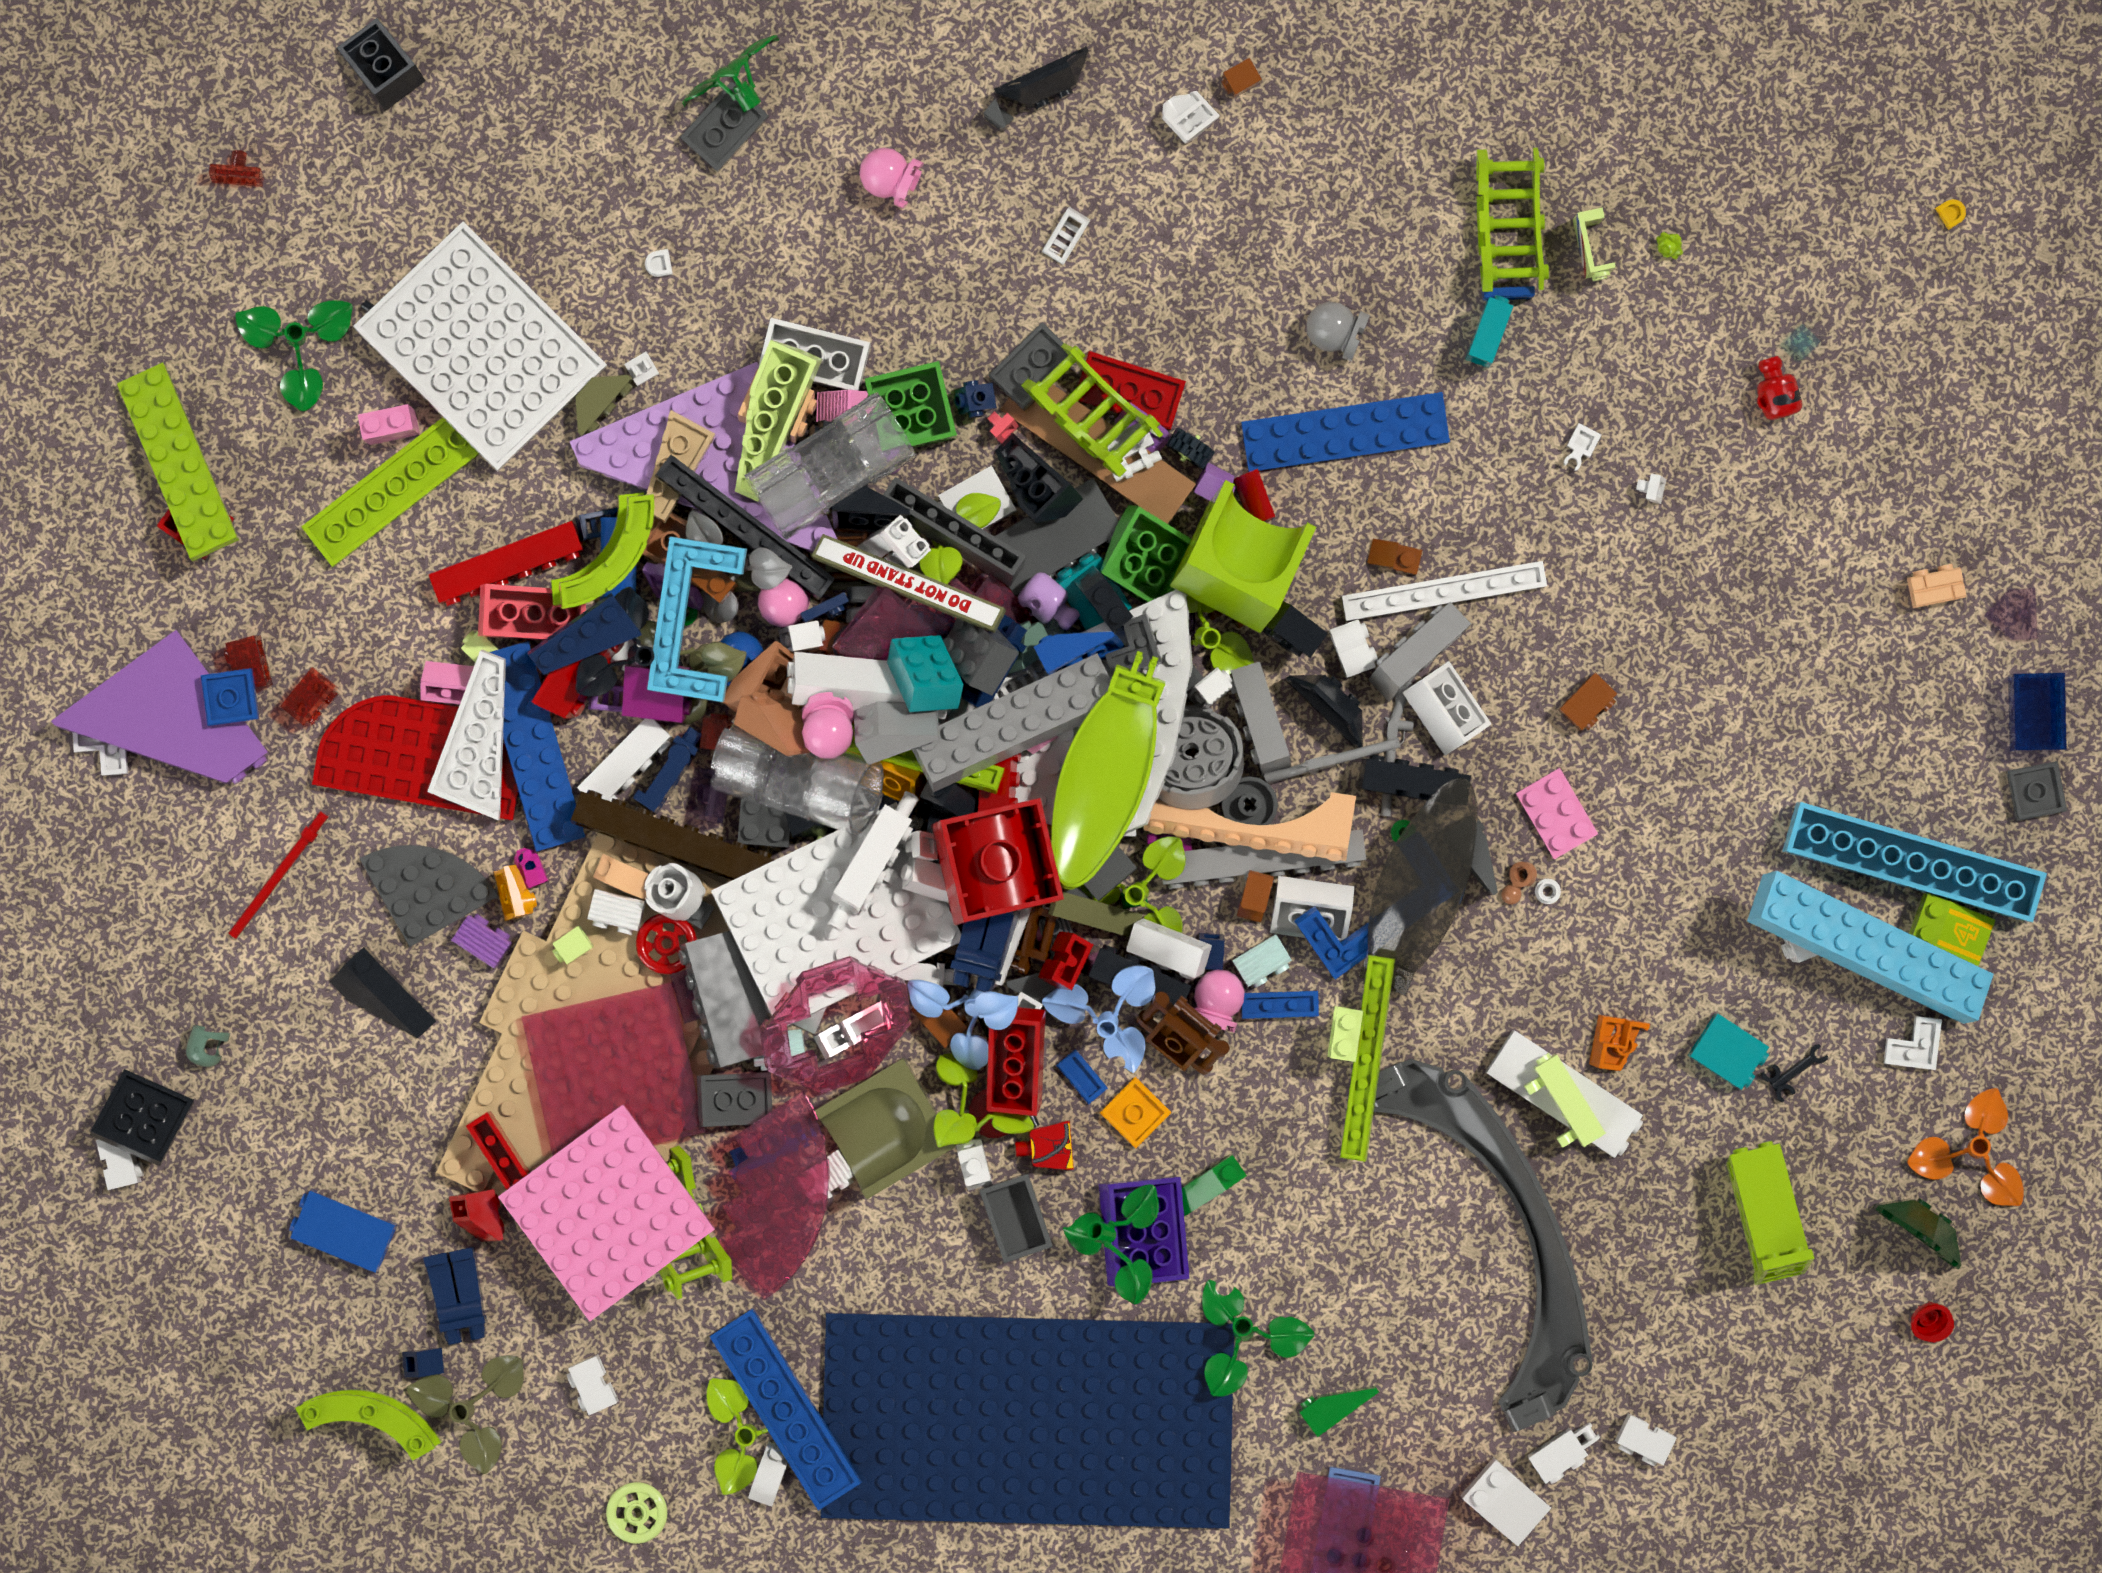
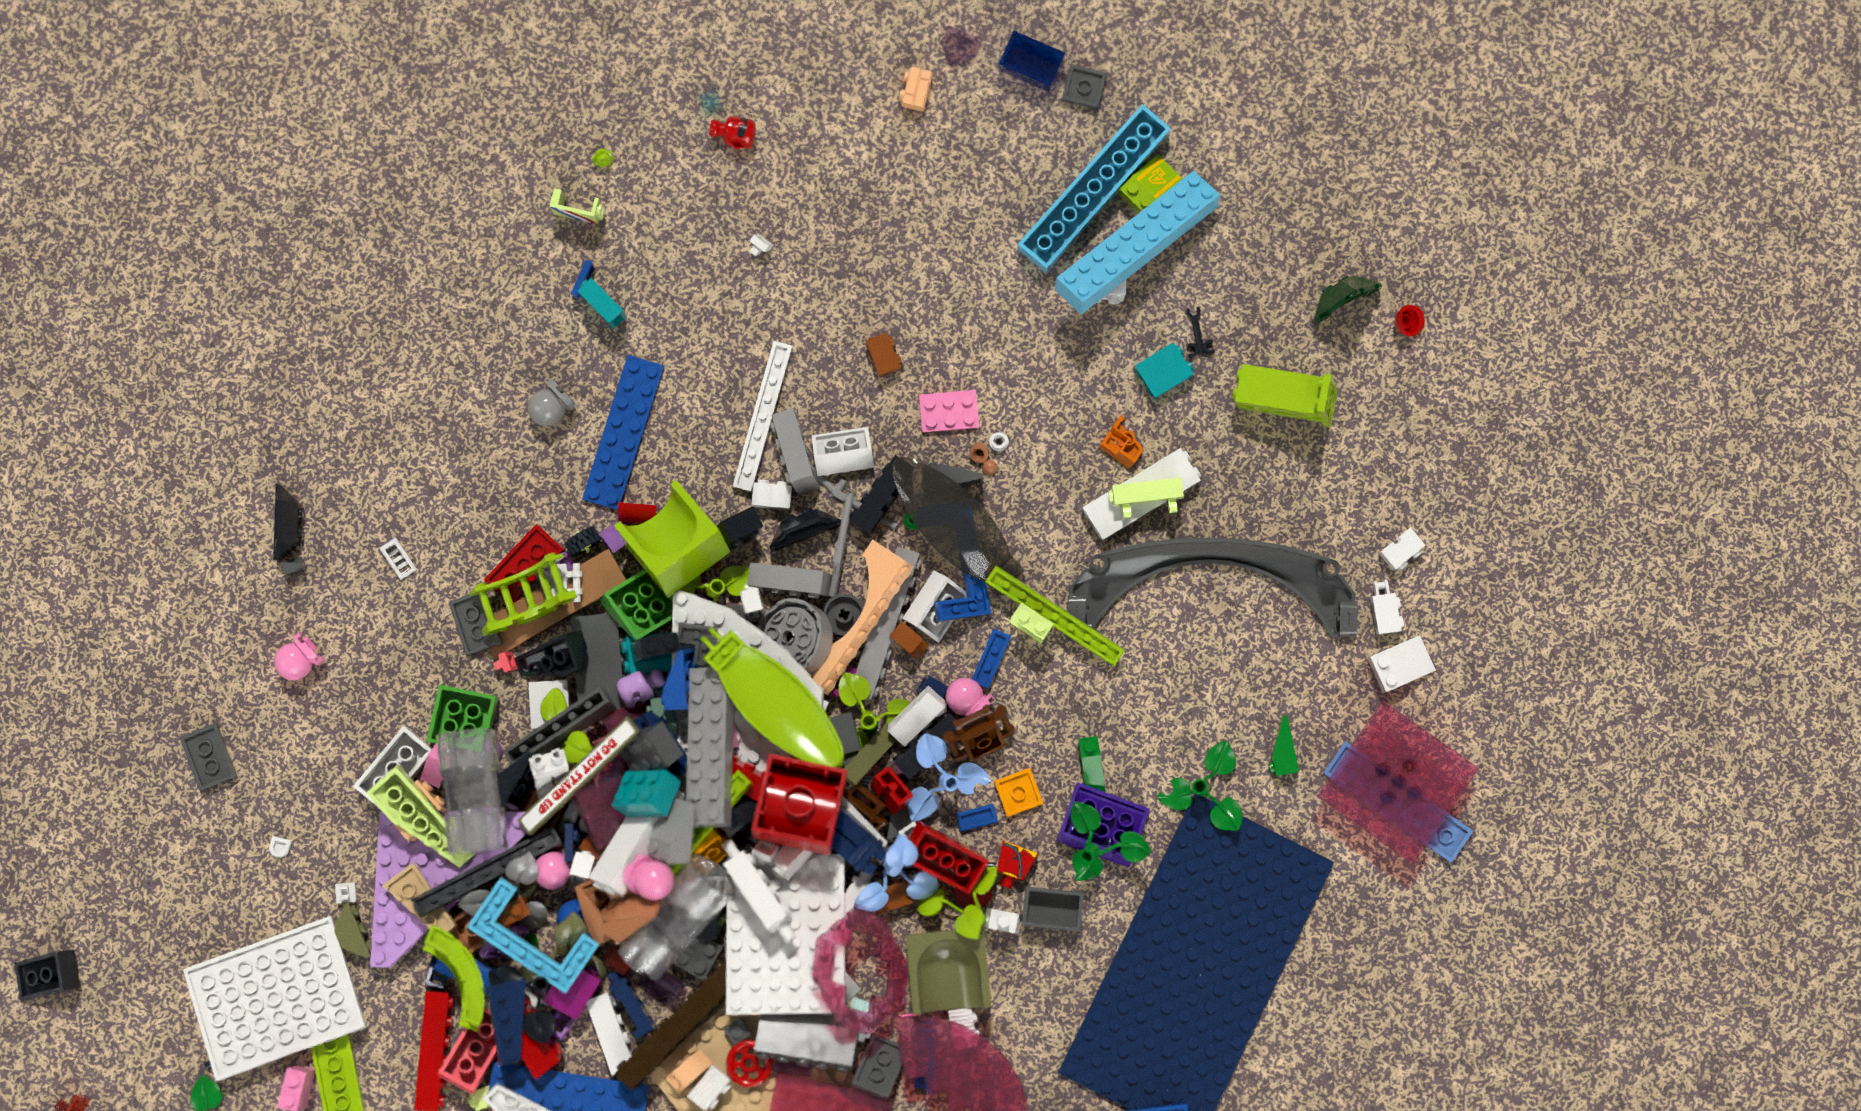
camera: 65 degrees left, 5 degrees down
(674, 891) = (715, 1041): white brick -> none
(743, 92) = (191, 732): green plant -> none
(848, 1031) = (870, 964): white slope -> none
(974, 399) = (478, 672): dark blue brick -> none
(1188, 115) = (357, 437): white slope -> none
(1241, 78) = (349, 390): dark orange brick -> none
(1261, 961) = (955, 656): light aqua brick -> none
(1394, 556) = (723, 438): dark orange slope -> none
(1487, 223) = (529, 272): lime fence -> none
(1582, 443) = (707, 278): white plate -> none
(1920, 1051) = (1222, 242): white plate -> none
(1987, 1114) = (1286, 219): orange plant -> none

